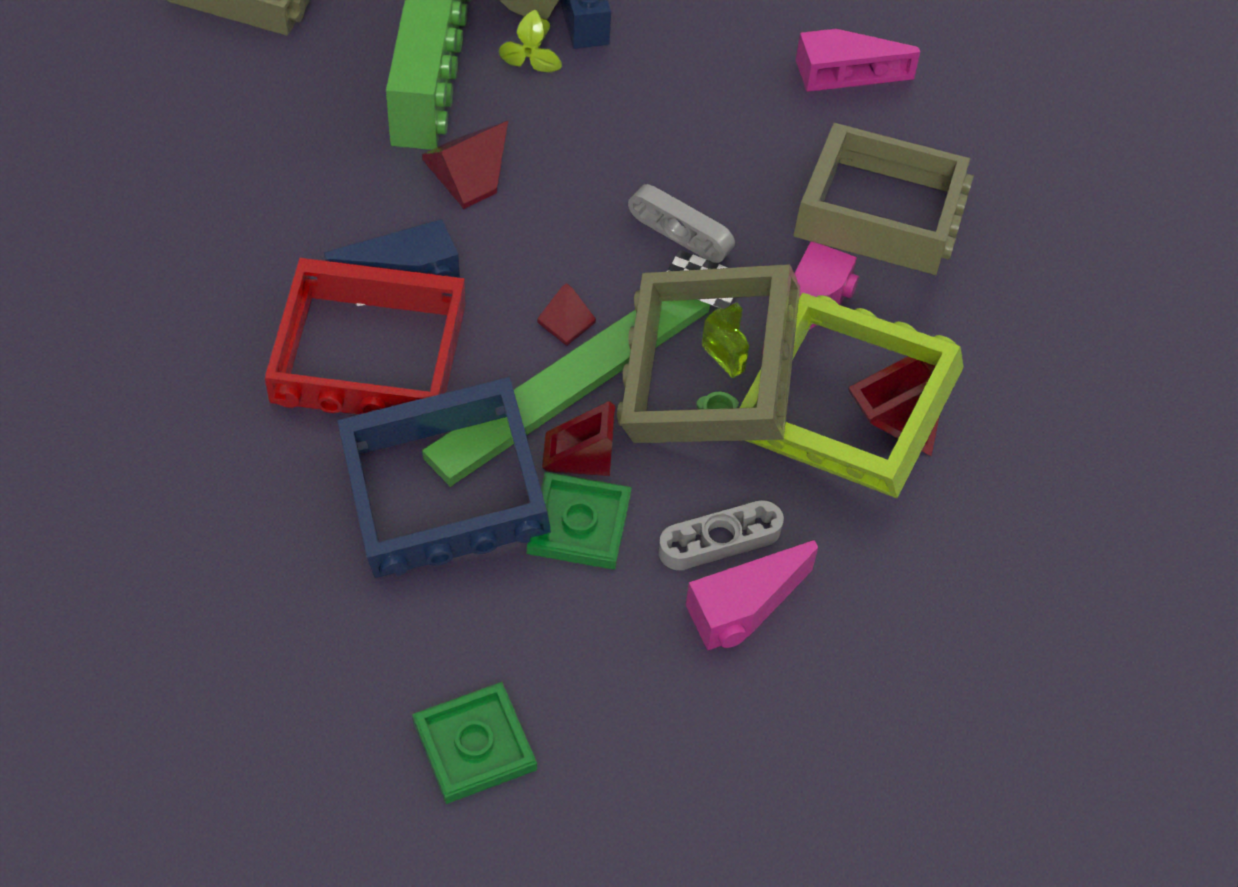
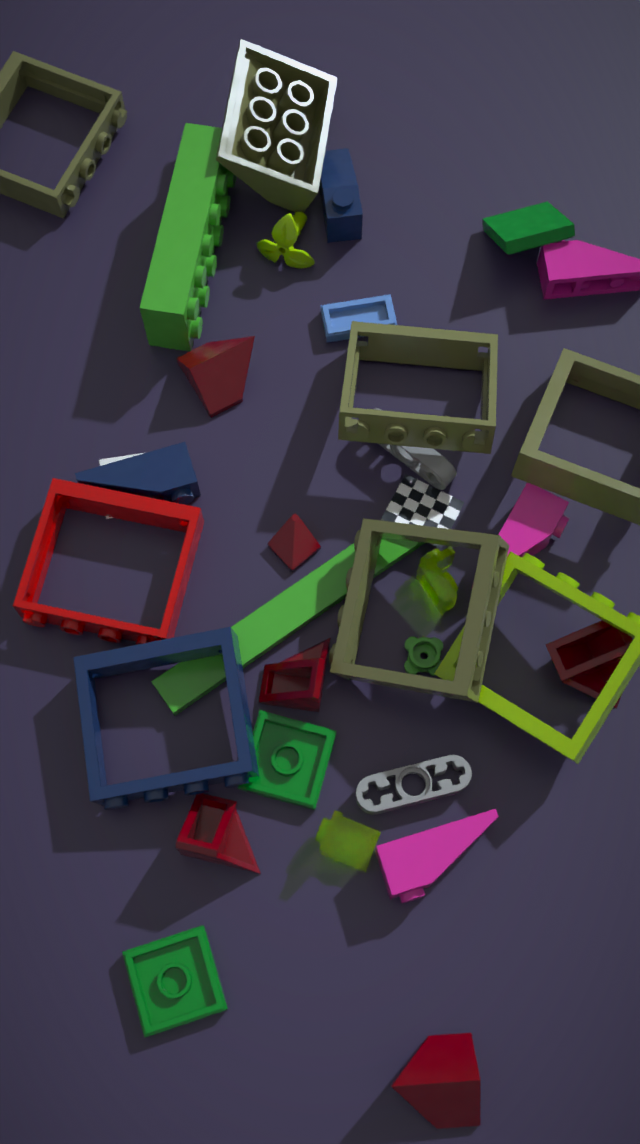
camera: 10 degrees right, 15 degrees up
(506, 597) = (216, 834): none -> dark red slope
(614, 112) = (339, 316): none -> medium blue tile
(653, 592) = (347, 841): none -> clear neon green bracket
(692, 133) = (423, 348): none -> olive window
(783, 22) = (528, 227): none -> green tile
(791, 820) = (443, 1081): none -> dark red slope

